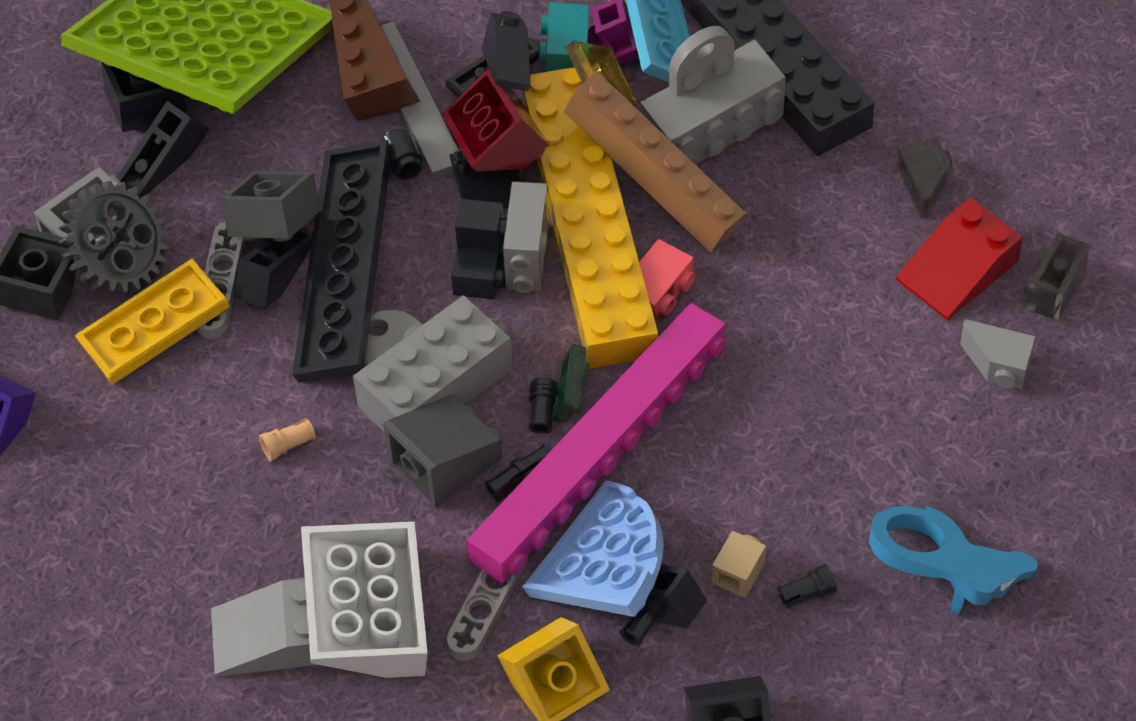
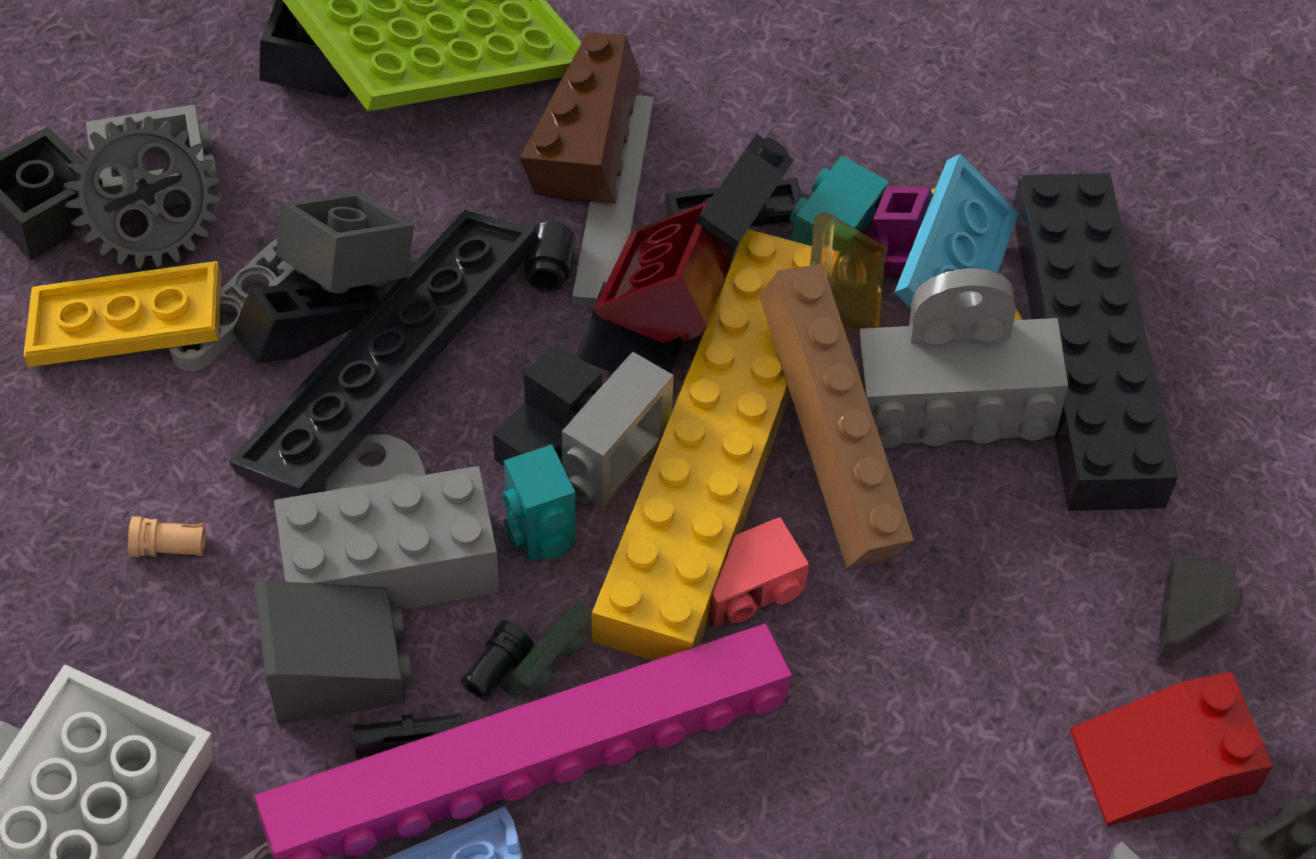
camera: 25 degrees right, 0 degrees up
(162, 149) = (284, 121): black slope -> none
(511, 300) = (539, 504): none -> teal brick

